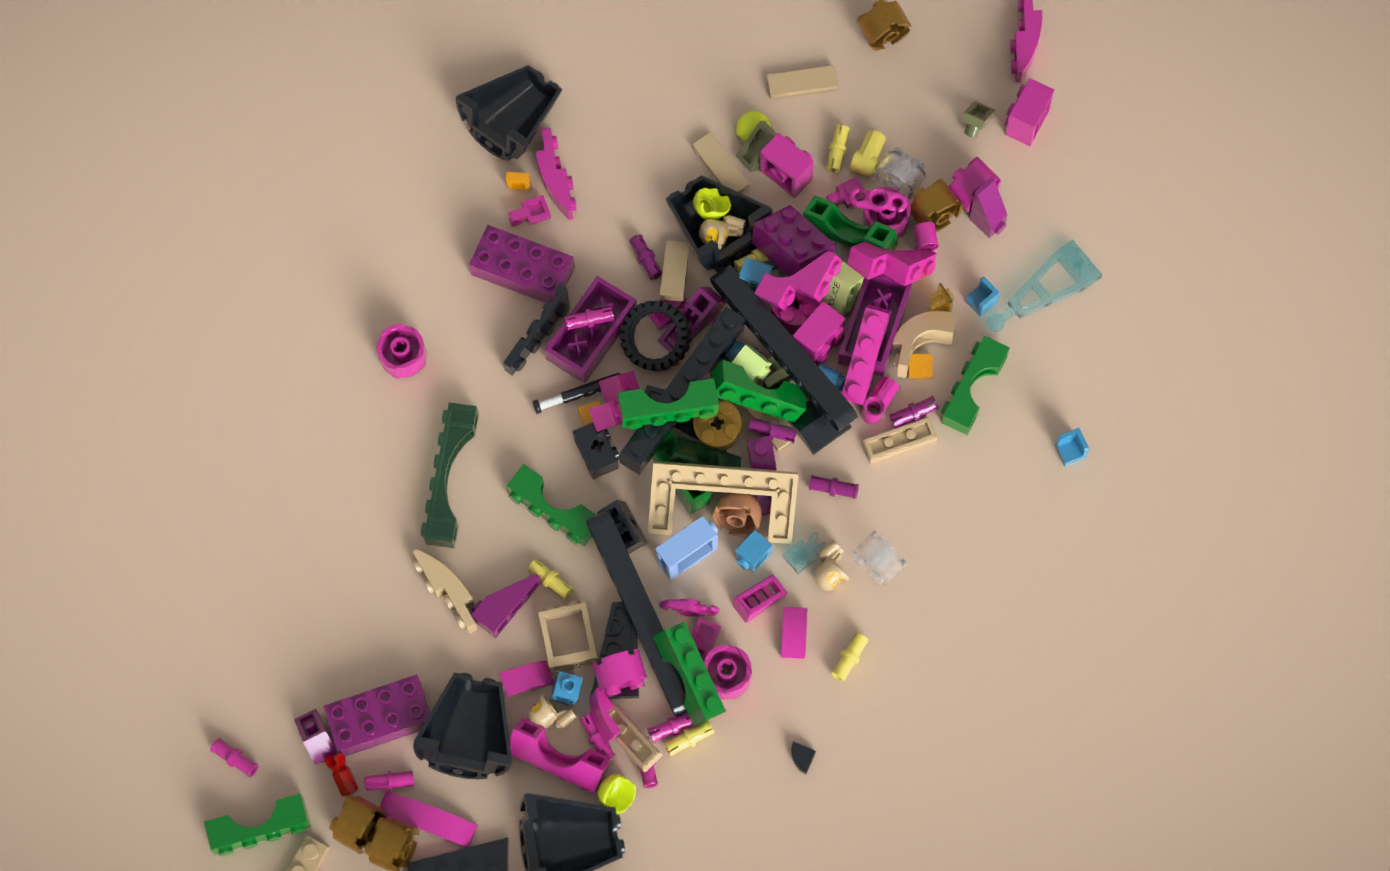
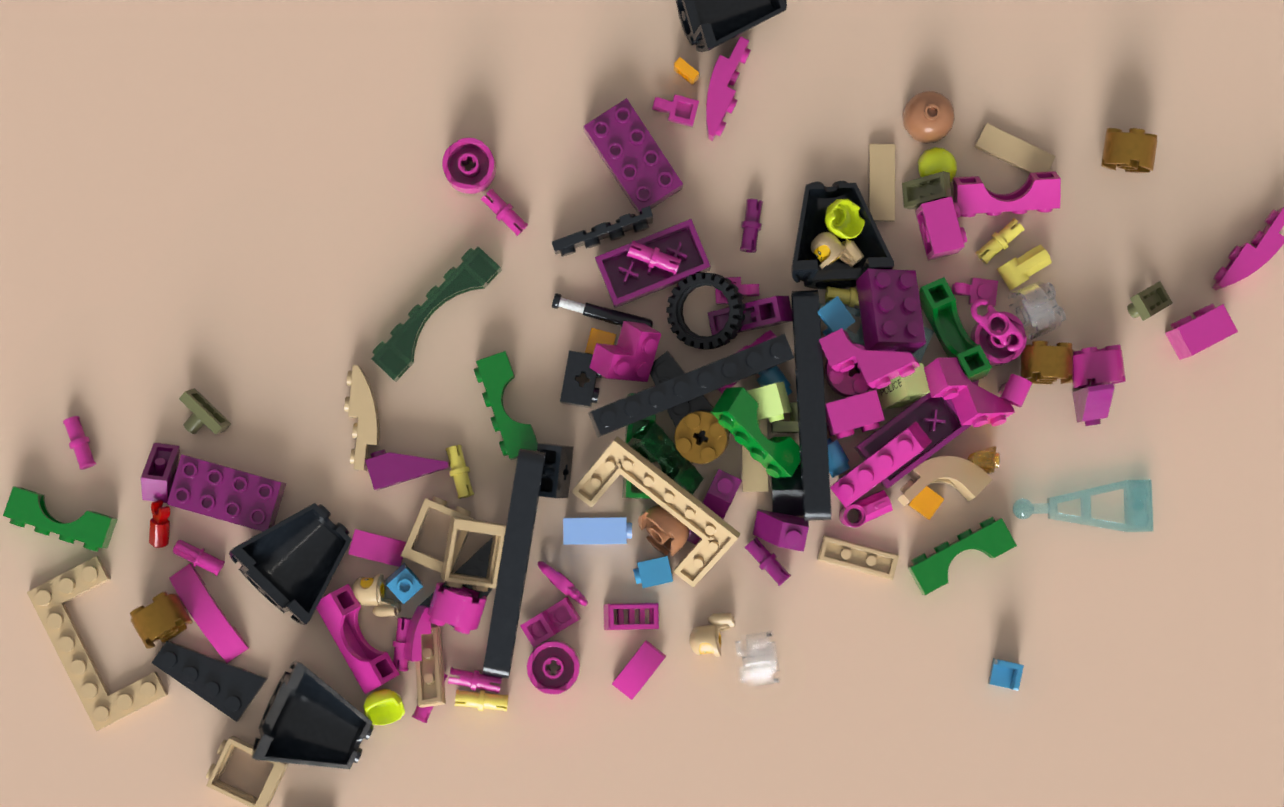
camera: 30 degrees right, 15 degrees up
(318, 670) = (202, 414): none -> olive tile
(356, 823) = (142, 580): pearl gold brick -> none
(451, 368) = (504, 212): none -> dark pink pin
(584, 605) = (479, 583): none -> tan window
(639, 410) = (631, 385): green arch -> none
(674, 271) = (766, 259): tan tile -> none
(679, 649) = (521, 628): green arch -> none
(721, 98) = (928, 117): none -> nougat cylinder
(772, 429) = (749, 473): magenta pin -> none
(802, 554) = (694, 604): clear light blue plate -> none
(802, 757) = (568, 785): black tile -> none
(826, 455) = (781, 529): none -> magenta slope
(840, 94) = (1038, 193): none -> dark pink arch
(849, 657) = (671, 726): light yellow pin -> none
(914, 411) = (889, 541): magenta pin -> none
(982, 297) = (1028, 477): dark azure panel -> none

